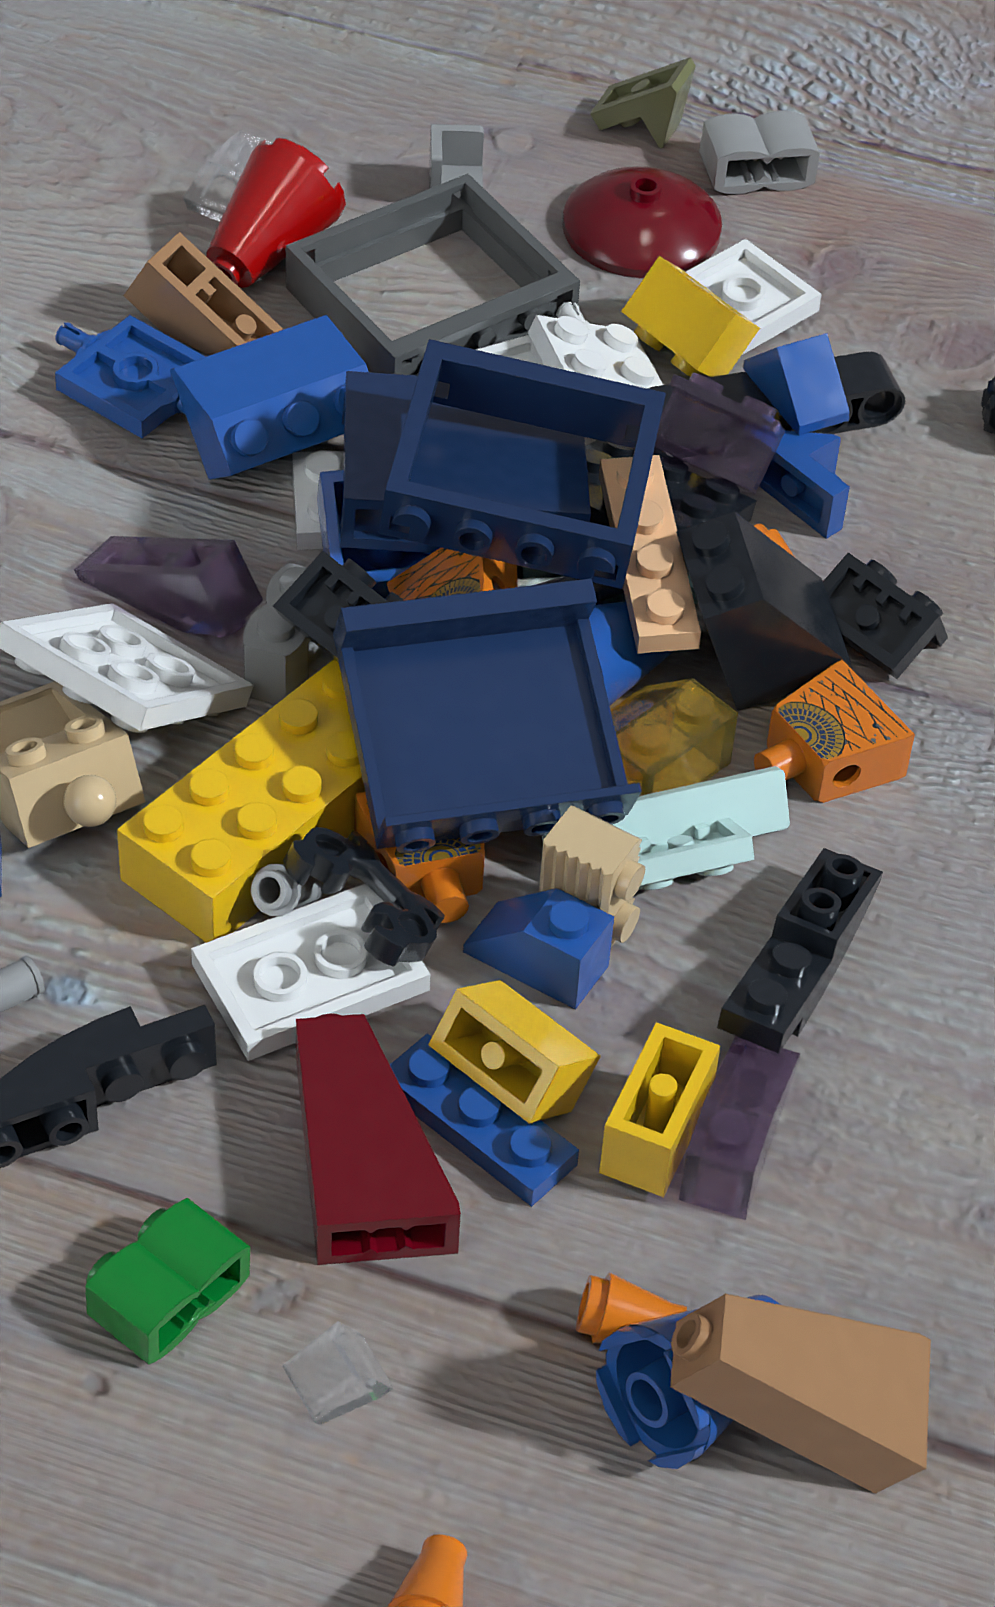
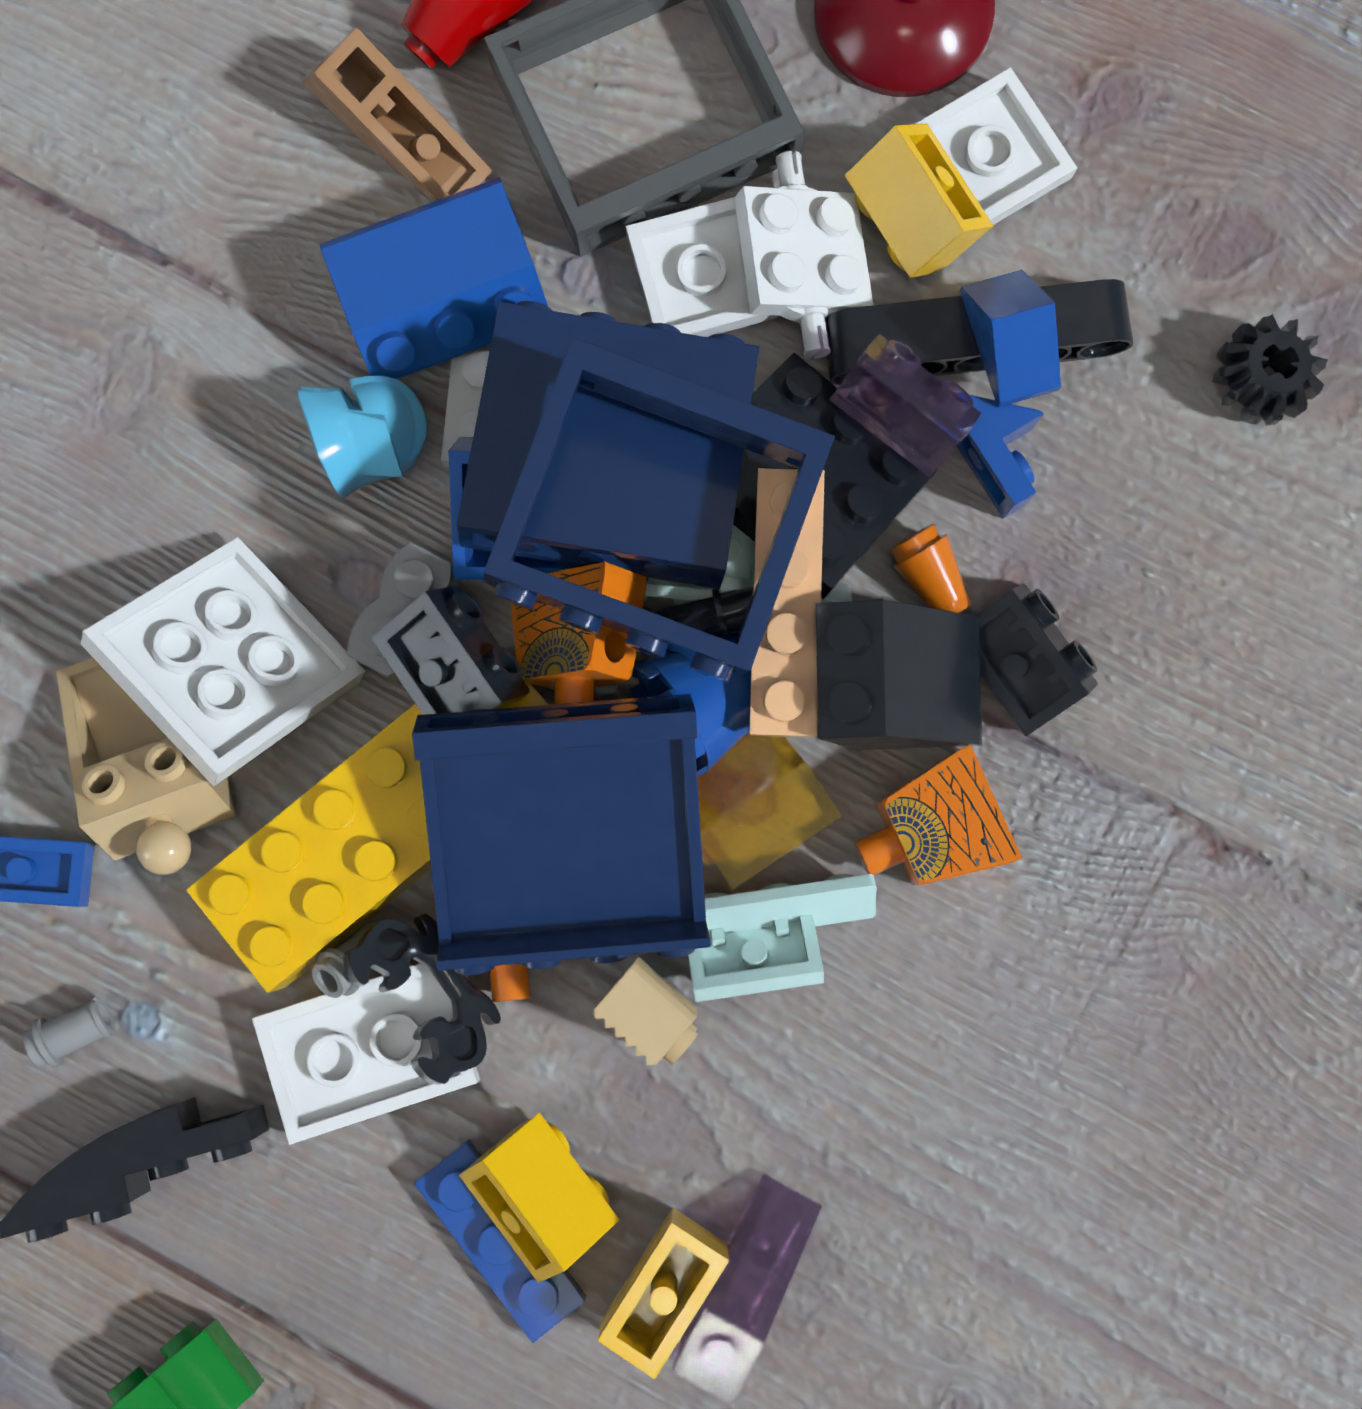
camera: 15 degrees right, 35 degrees up
(124, 373) = (297, 196): blue plate -> none
(180, 581) = (298, 518): clear purple slope -> none
(226, 499) = (364, 437): none -> medium azure helmet
(366, 1155) = (381, 1285): dark red slope -> none
(546, 943) = (588, 1051): blue slope -> none
(802, 952) = (844, 1105): black slope -> none

